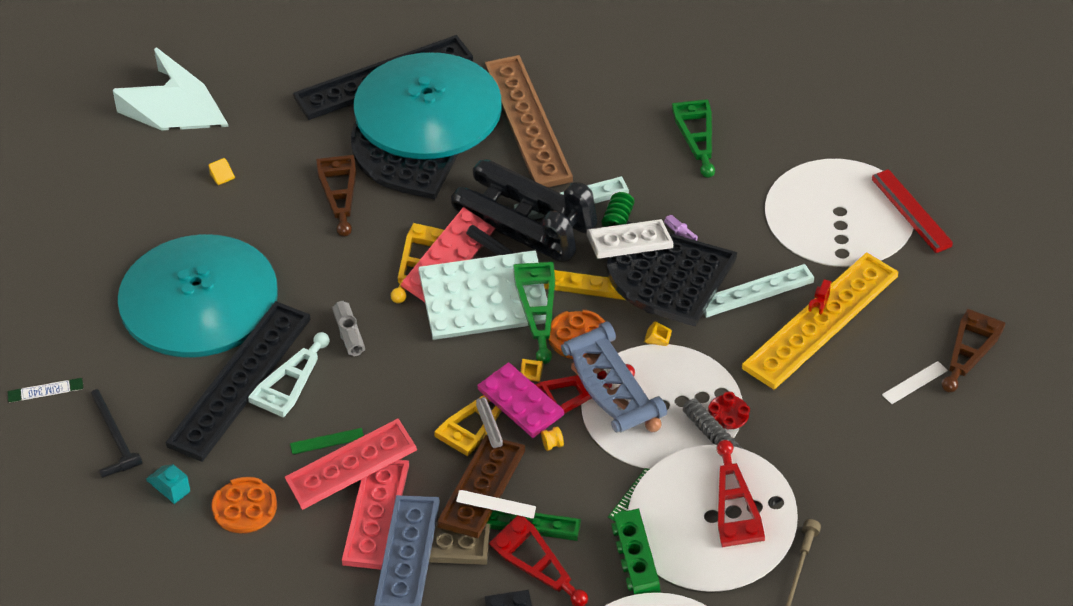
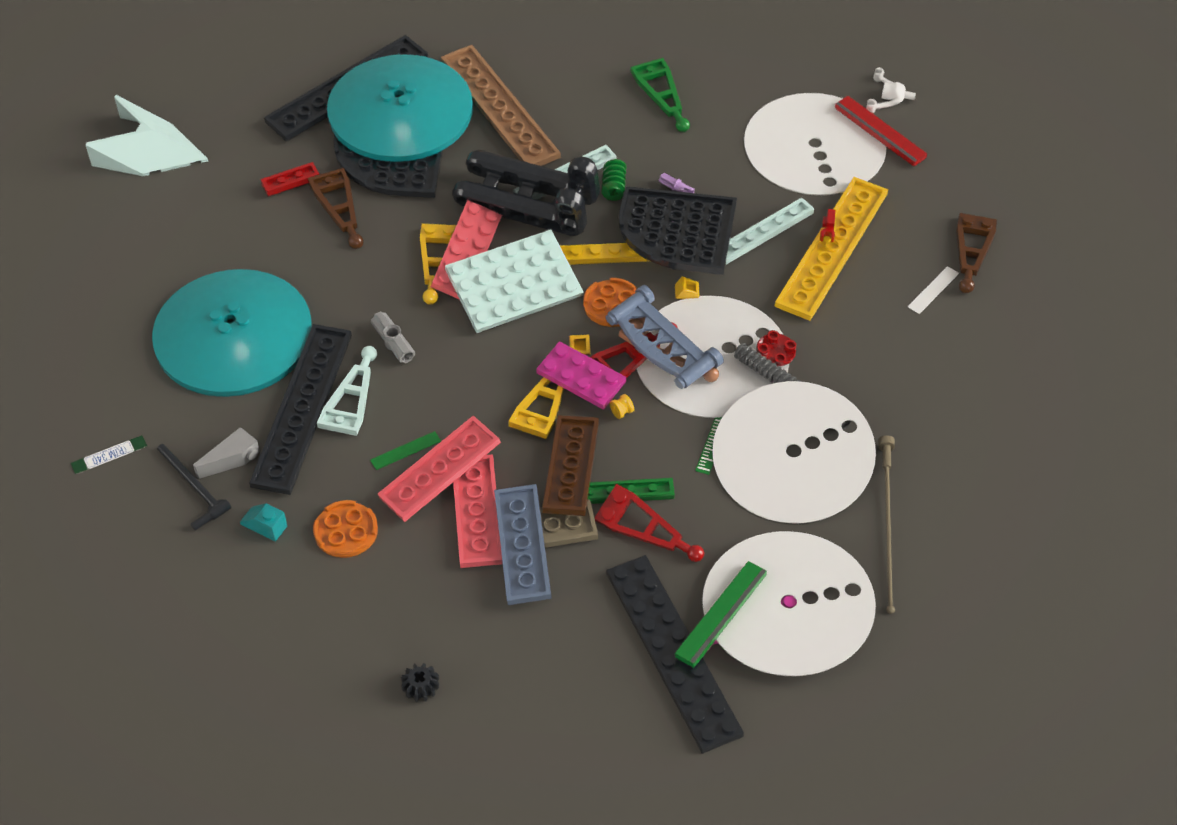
camera: 15 degrees left, 5 degrees up
(156, 411) = (229, 454): none -> light grey slope
(221, 171) = (216, 206): yellow slope -> none
(298, 157) = (289, 179): none -> red plate
(487, 241) = (501, 229): black axle -> none
(489, 422) = (558, 402): light grey axle -> none
(496, 504) = (590, 479): white sticker -> none
(537, 274) = (559, 252): green plate -> none
(629, 238) = (634, 202): white tile -> none
(631, 523) = (724, 472): green brick -> none
(739, 531) = (821, 461): red plate -> none
(936, 172) = (892, 91): none -> white piece

